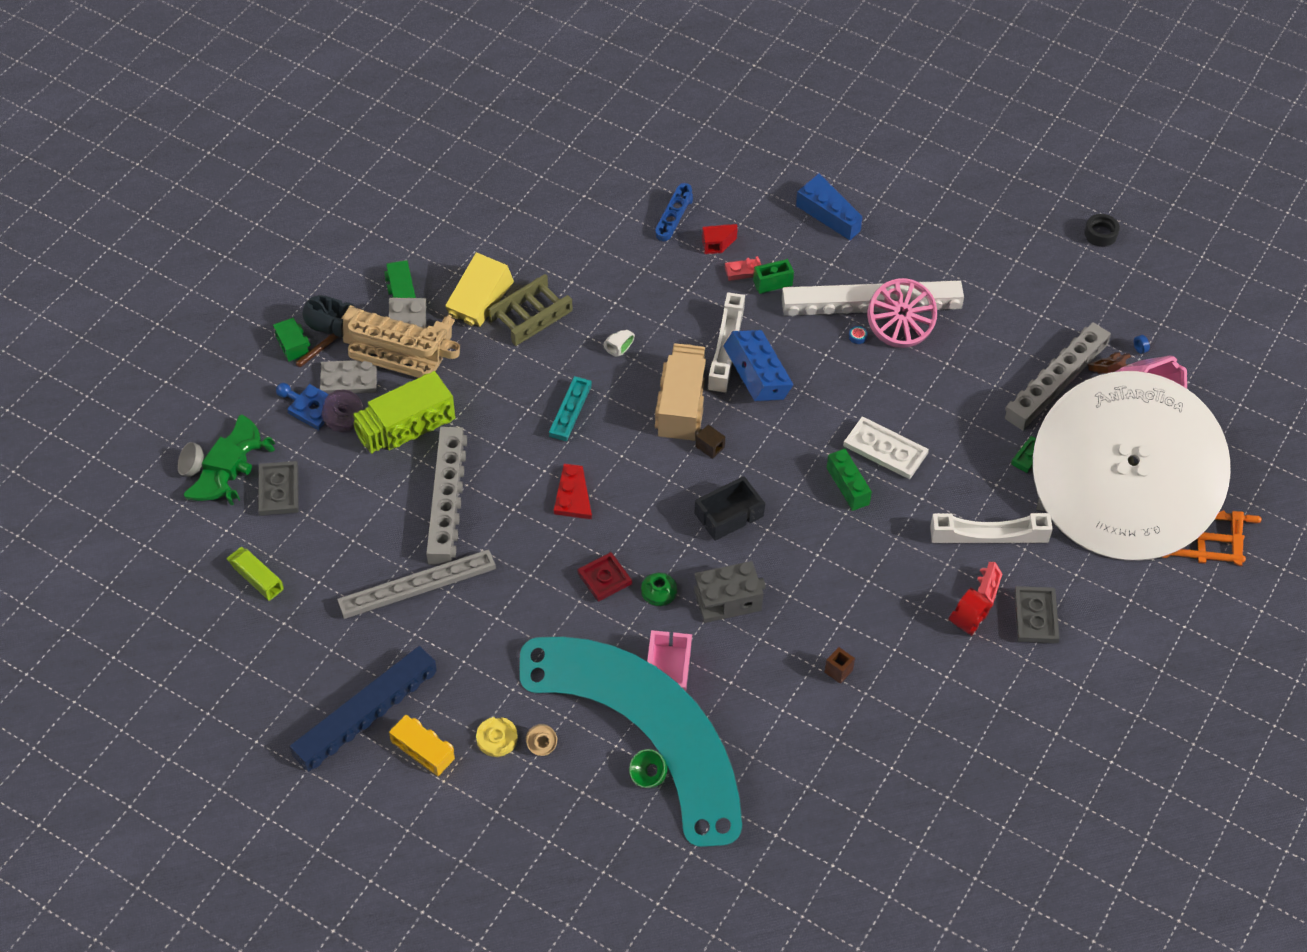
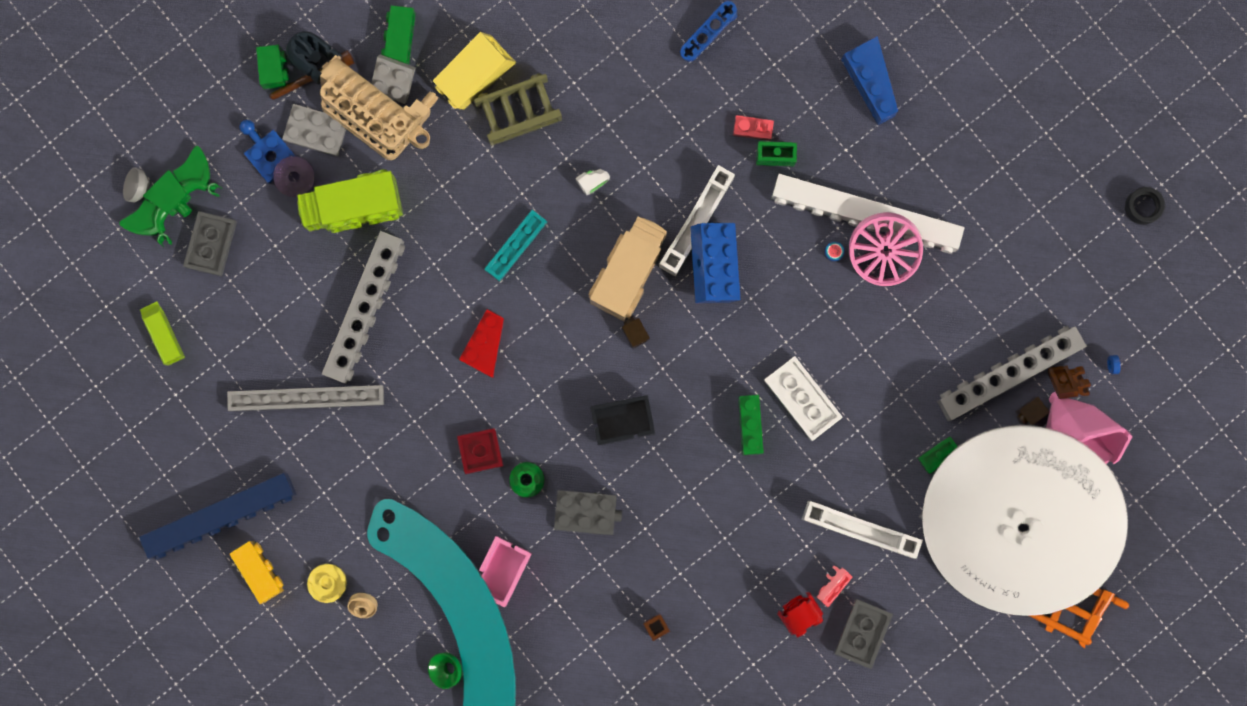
camera: 20 degrees right, 30 degrees up
(718, 238) = (741, 81): red slope -> none

